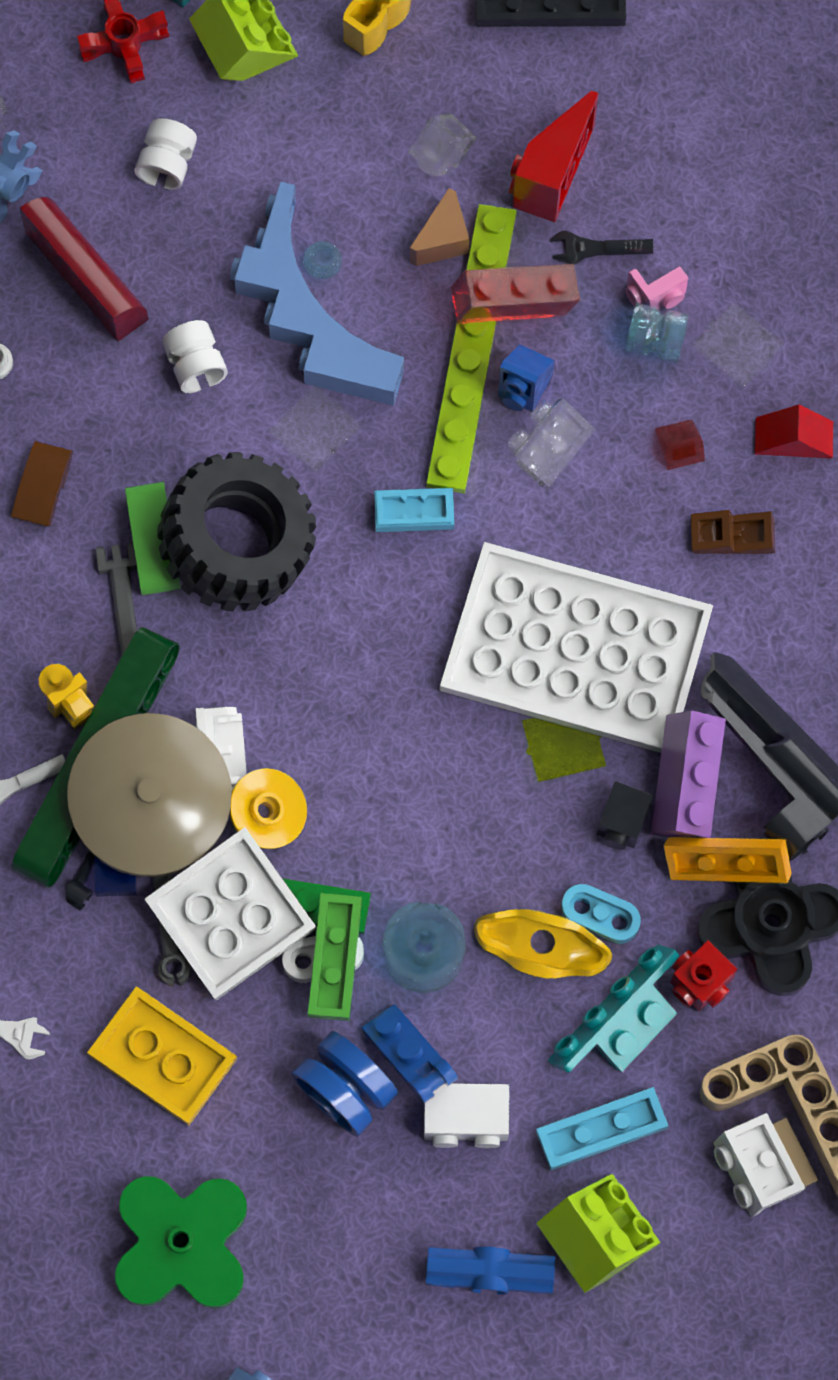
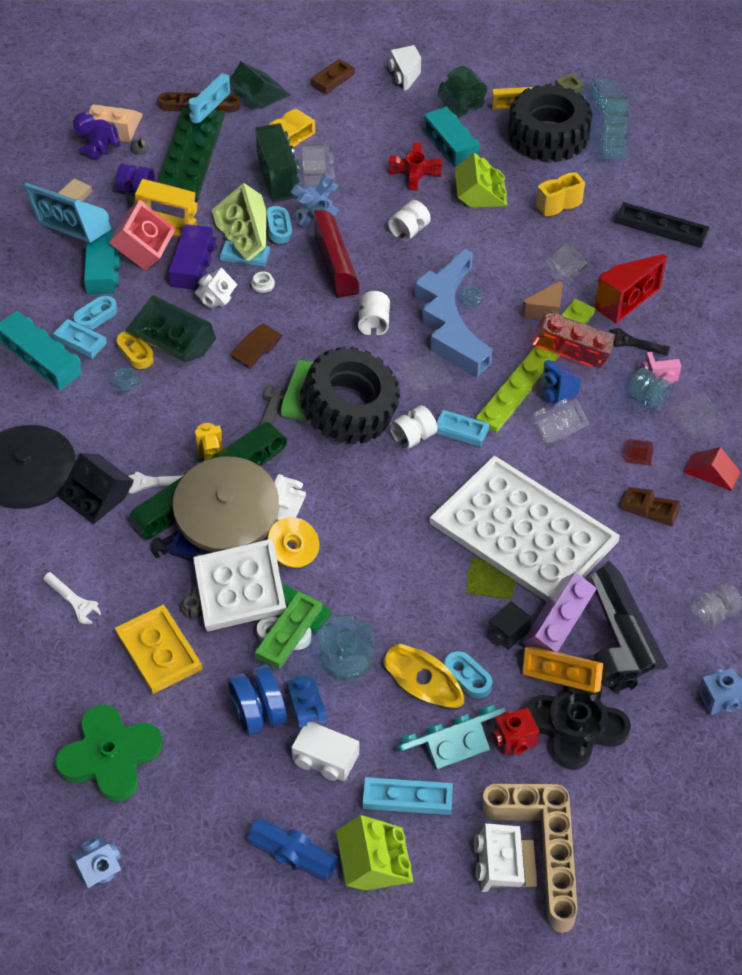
camera: 25 degrees right, 20 degrees down
(349, 538) = (416, 425): none -> white wheel

